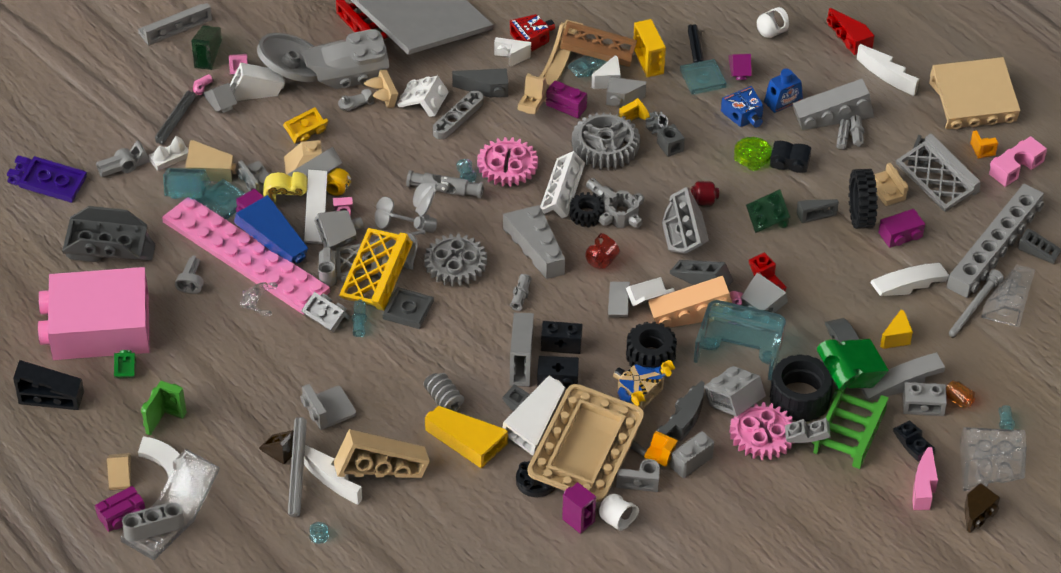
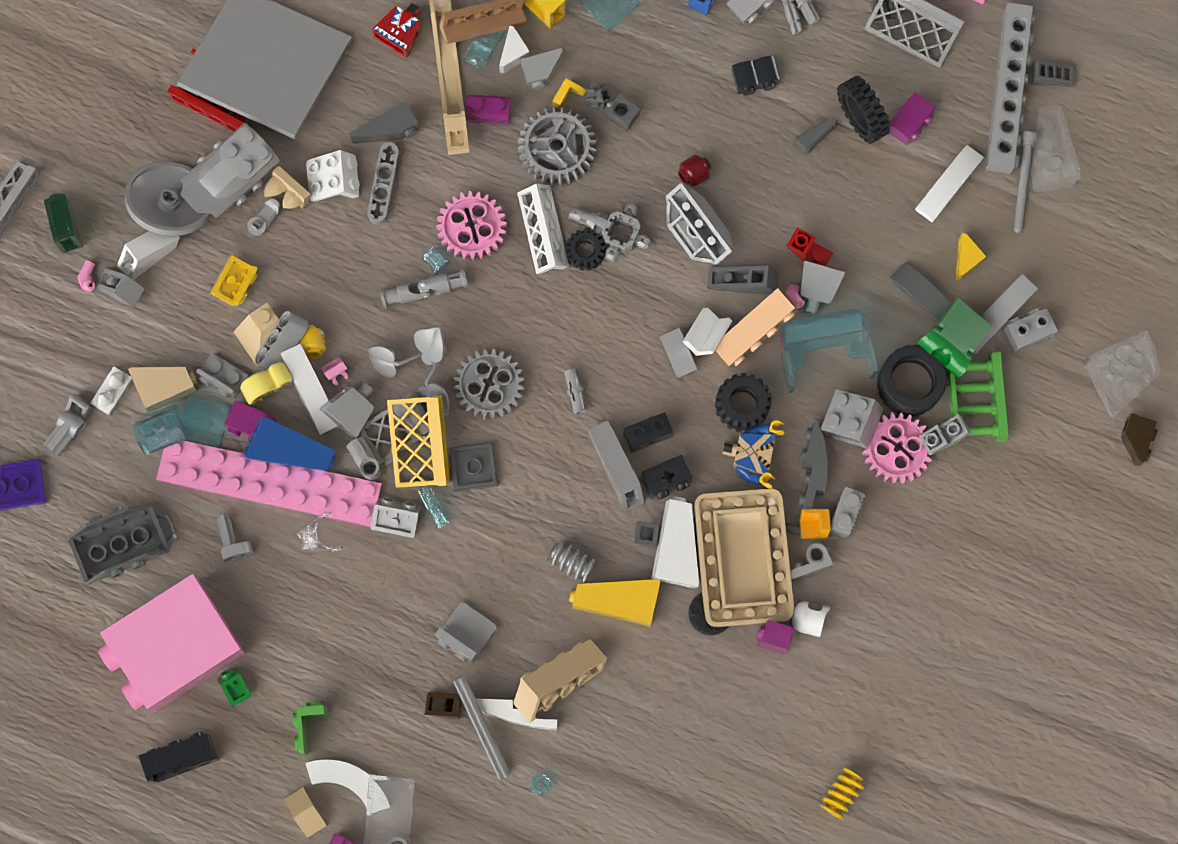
camera: 30 degrees left, 30 degrees up
(175, 117) = (85, 333): dark grey axle -> none
(235, 60) = (111, 230): bright pink tile -> none
(514, 49) = (398, 63): white slope -> none
(533, 234) = (554, 315): light grey wedge -> none
(602, 254) = (633, 304): clear red helmet -> none
(743, 107) = (676, 29): blue torso -> none
(752, 152) = (713, 87): clear neon green tile -> none
(768, 211) = (768, 161): clear green hinge -> none
(890, 186) = (870, 64): tan bracket -> none
(912, 440) = (1041, 385): black slope -> none
(925, 482) = (1074, 431): bright pink slope -> none
(960, 394) = (1061, 307): clear orange brick -> none
(1006, 420) = (1115, 314): clear light blue pin -> none

